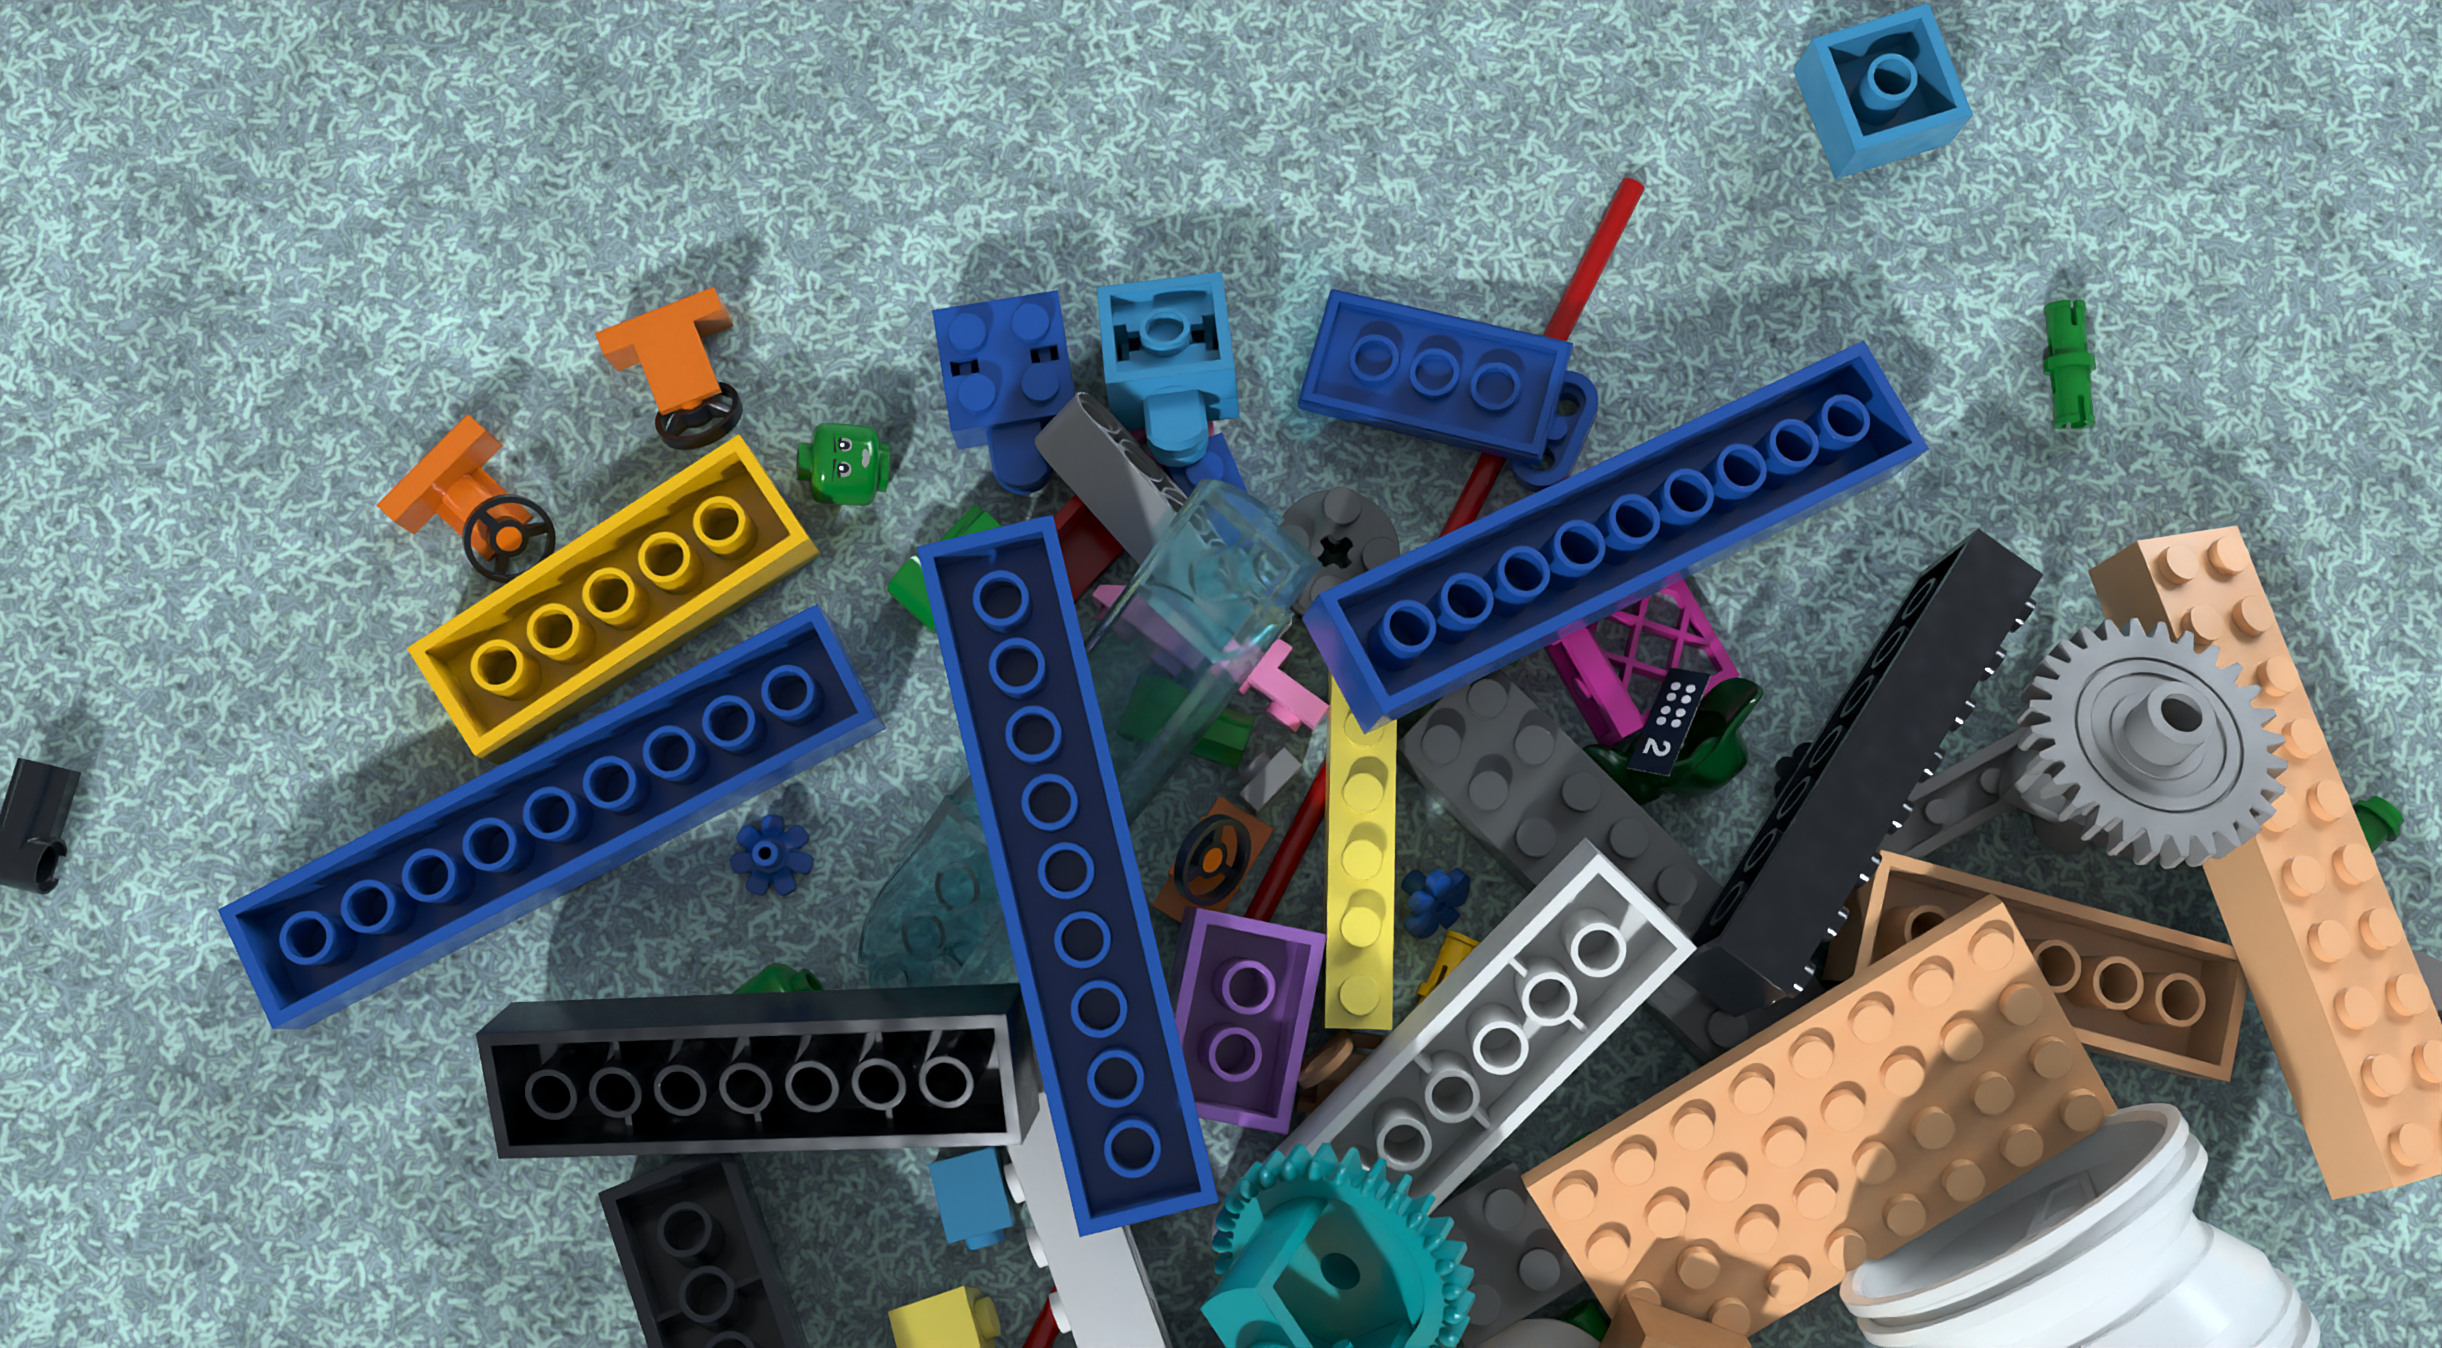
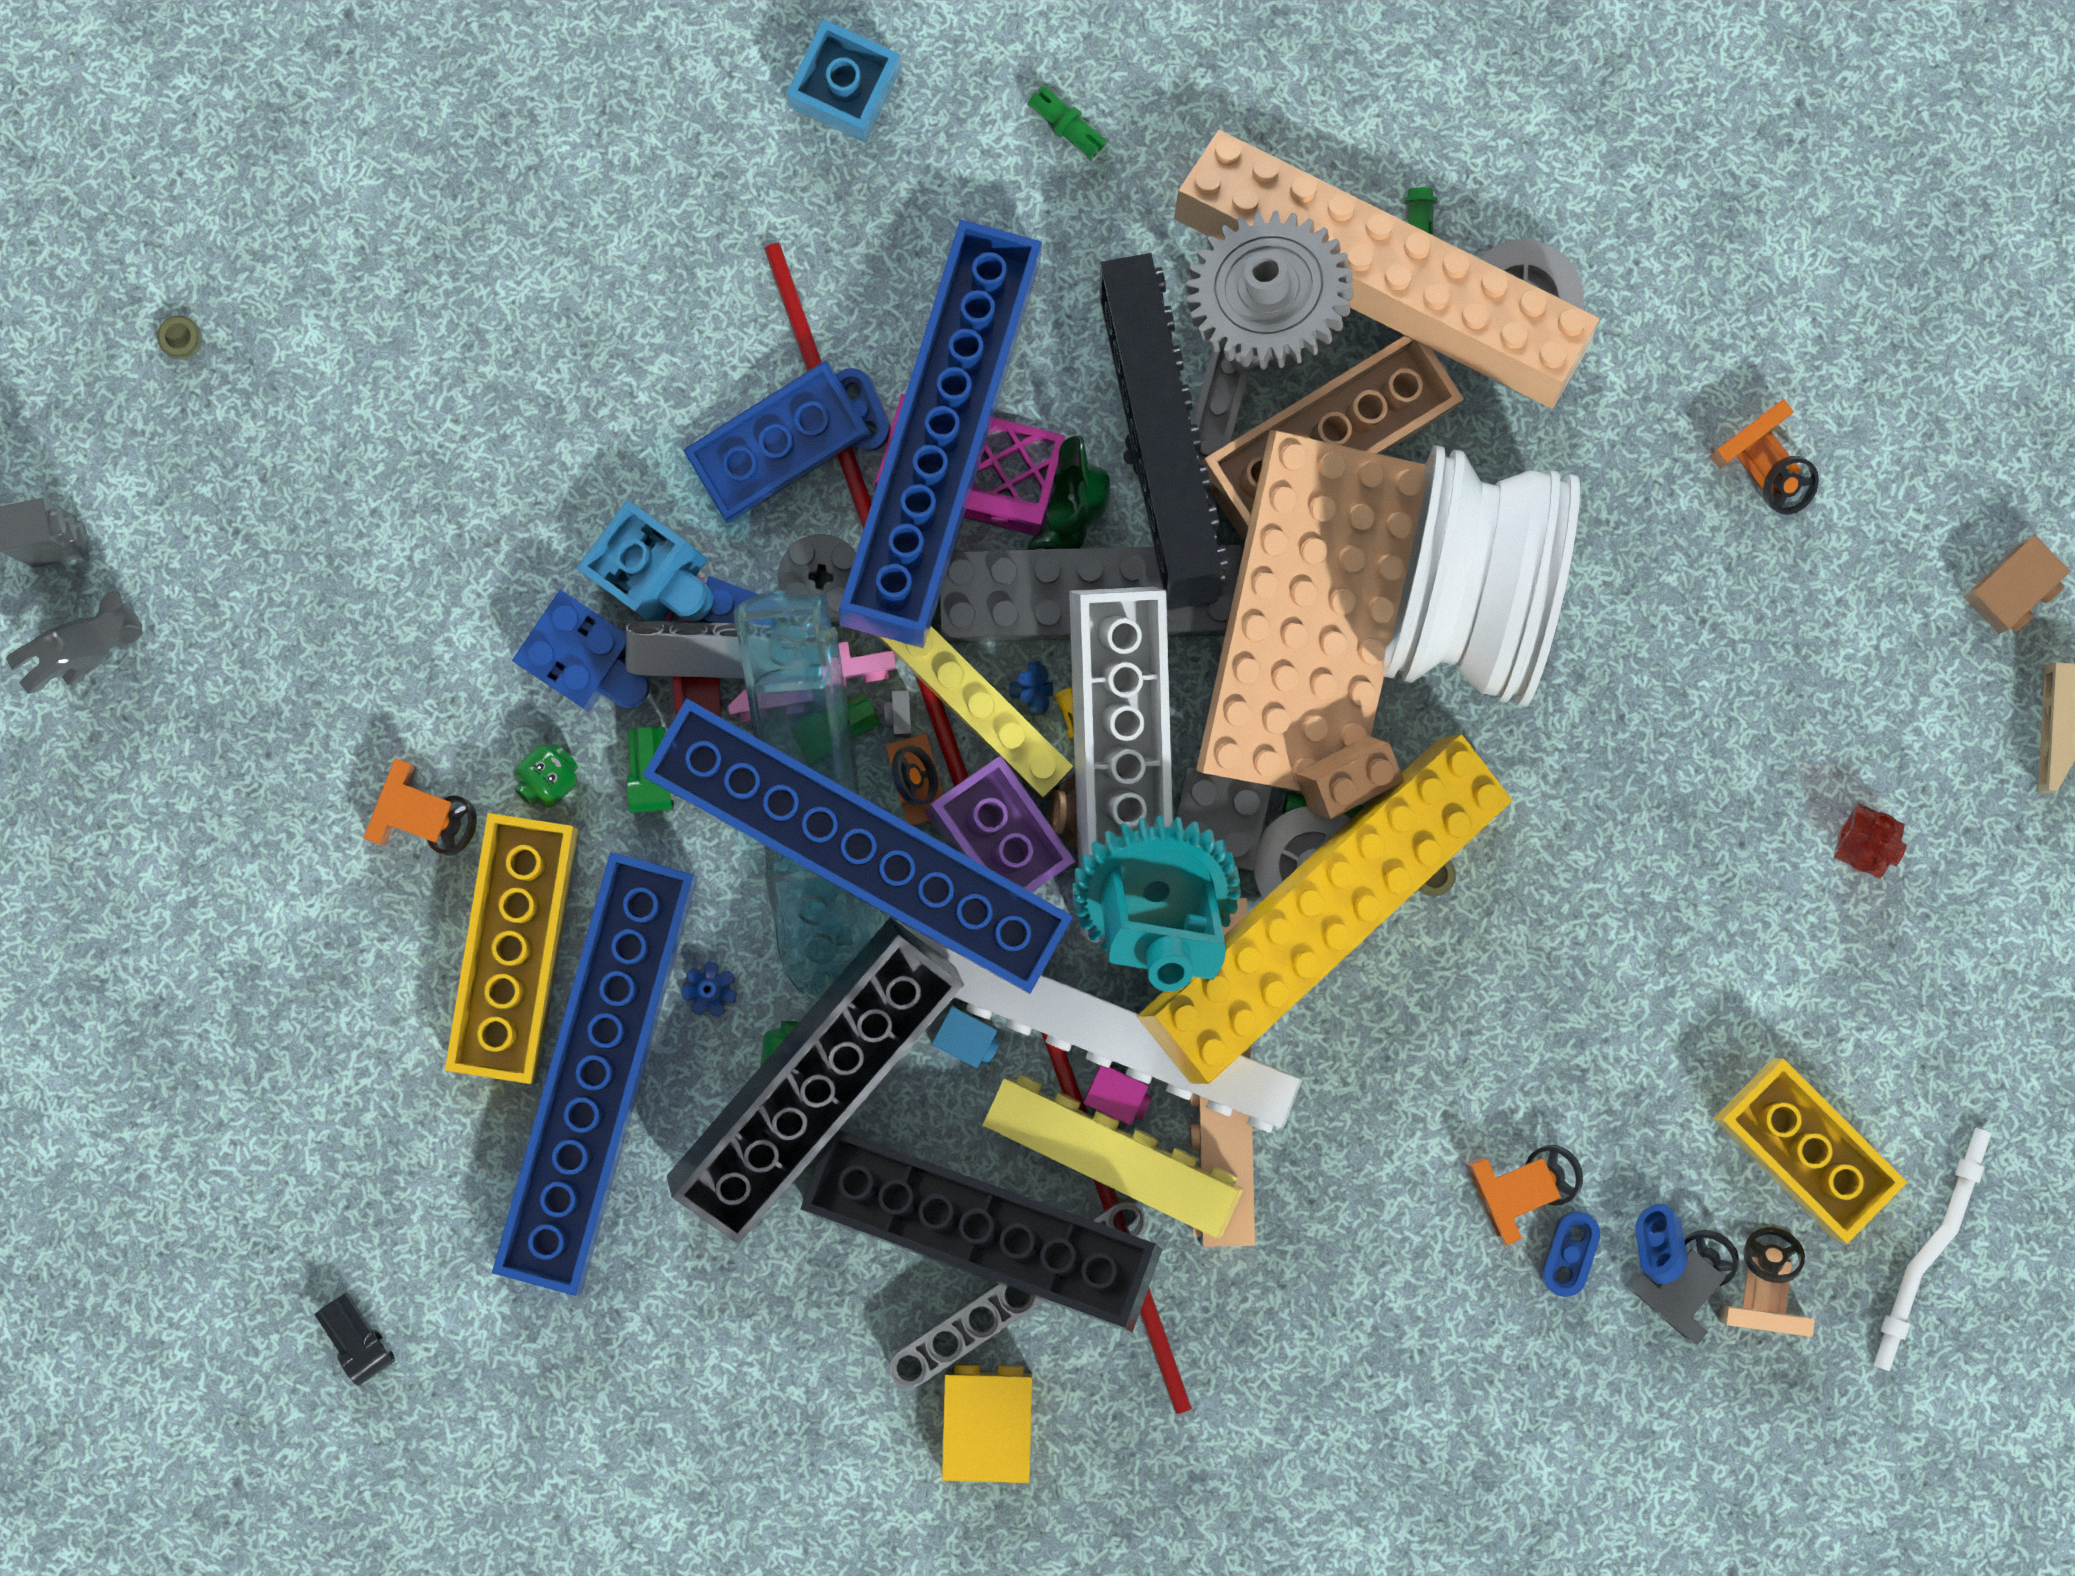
camera: 50 degrees left, 5 degrees up
(469, 500) = (392, 979): orange piece -> none
(1669, 721) = (1054, 494): black sticker -> none

